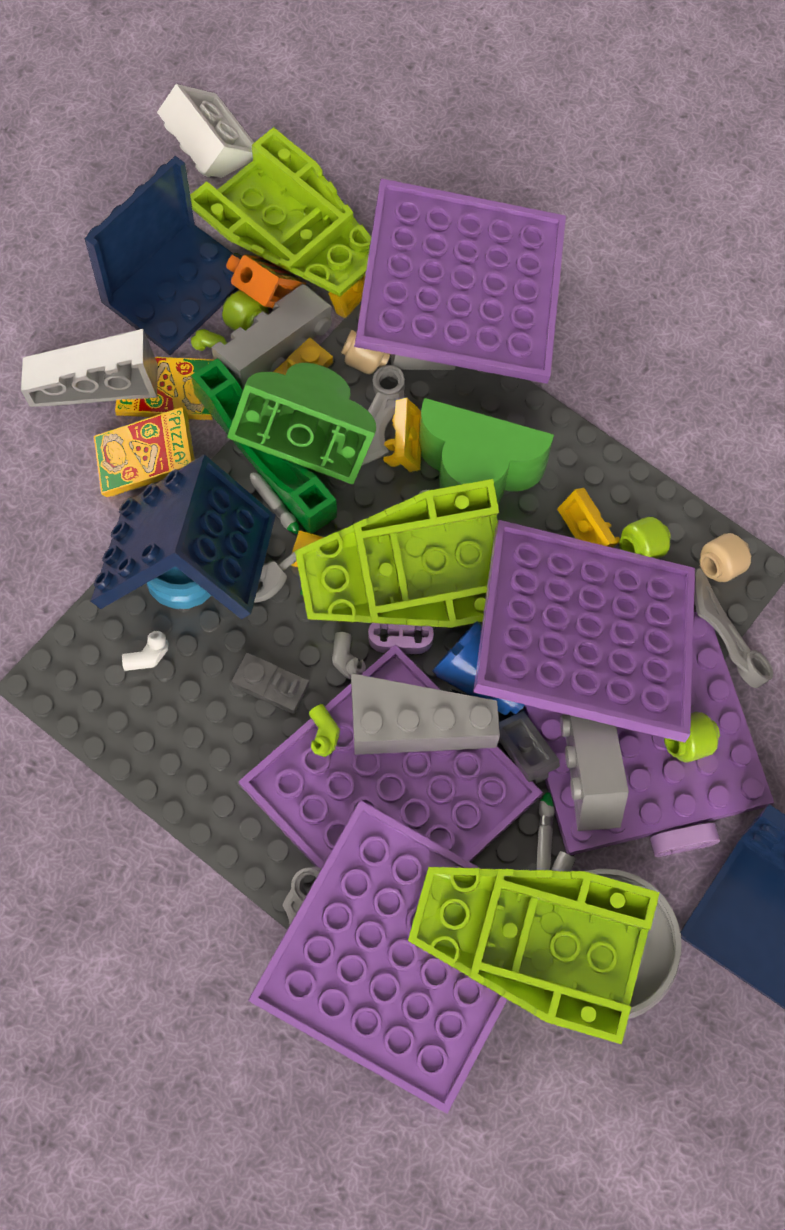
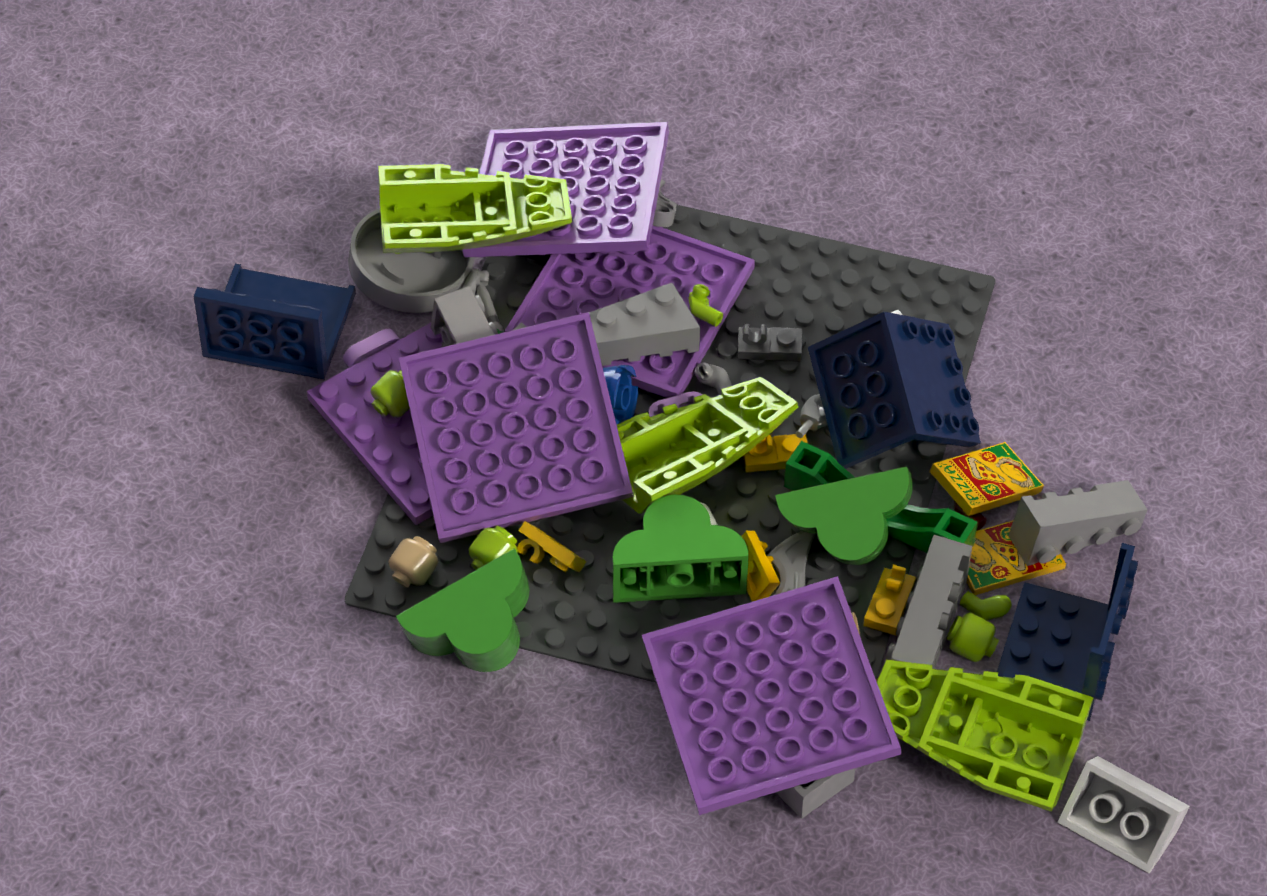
camera: 160 degrees right, 15 degrees down
(261, 279) = (971, 650): orange torso -> none
(697, 467) = (473, 616): none -> bright green brick
(750, 664) = (409, 513): light grey piece -> none

